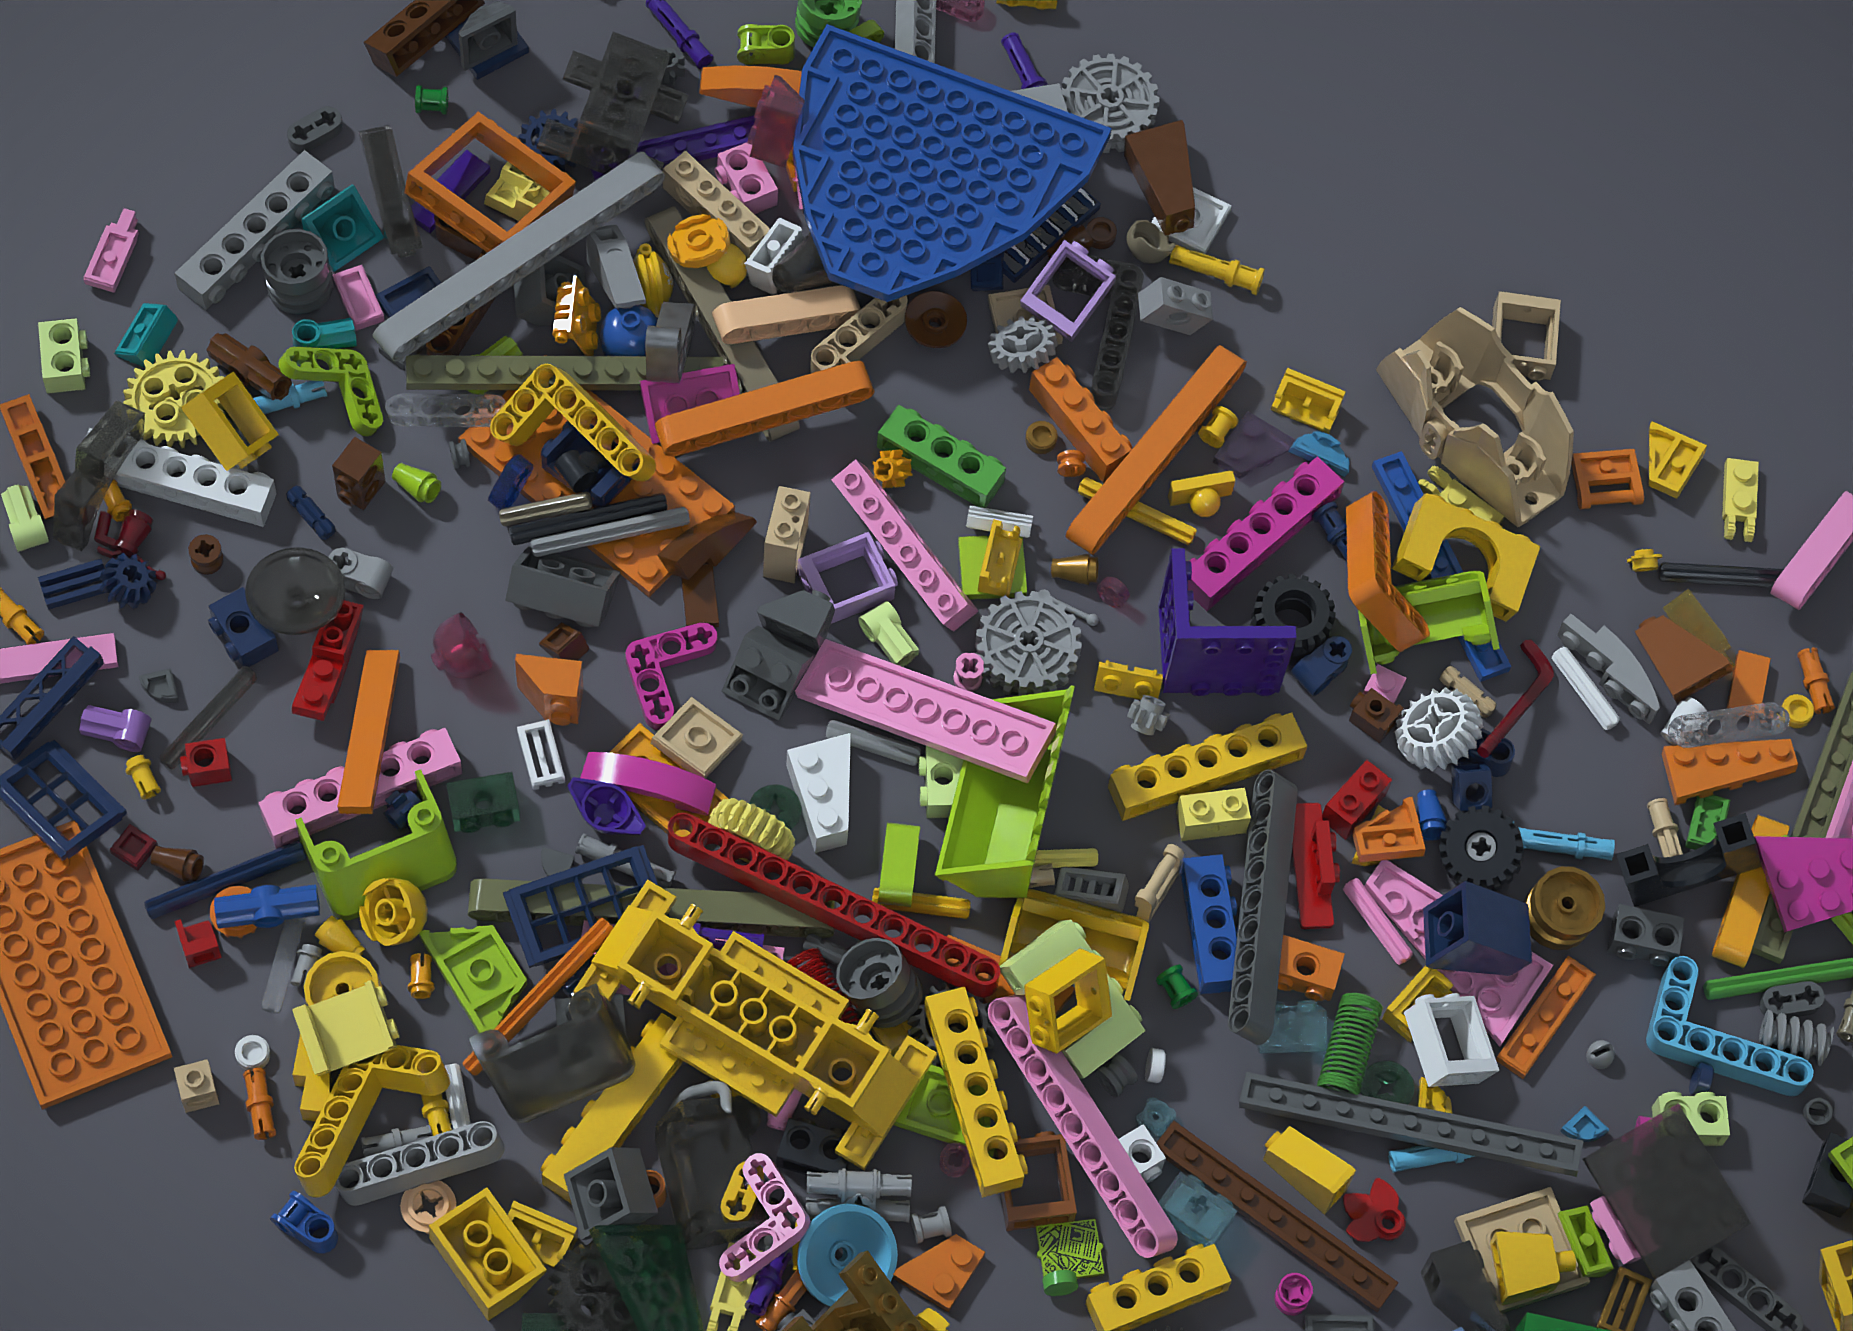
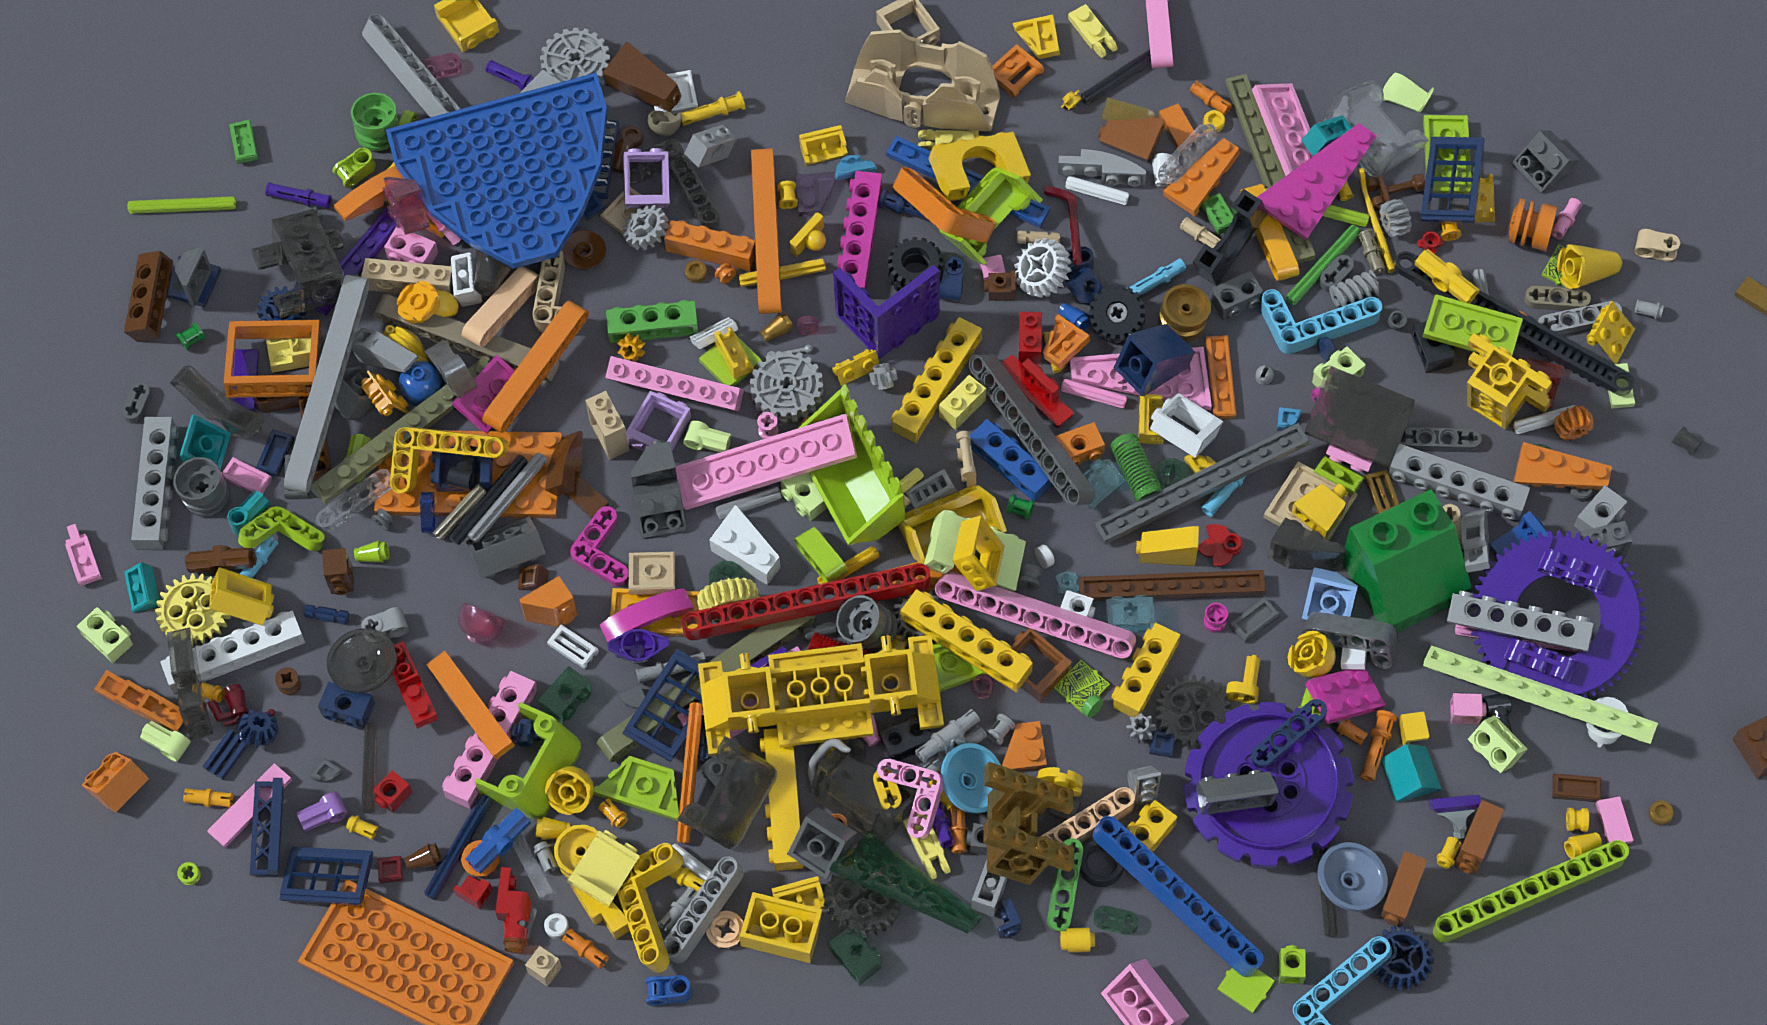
camera: 30 degrees left, 0 degrees up
(222, 998) = (515, 911): none -> red plate

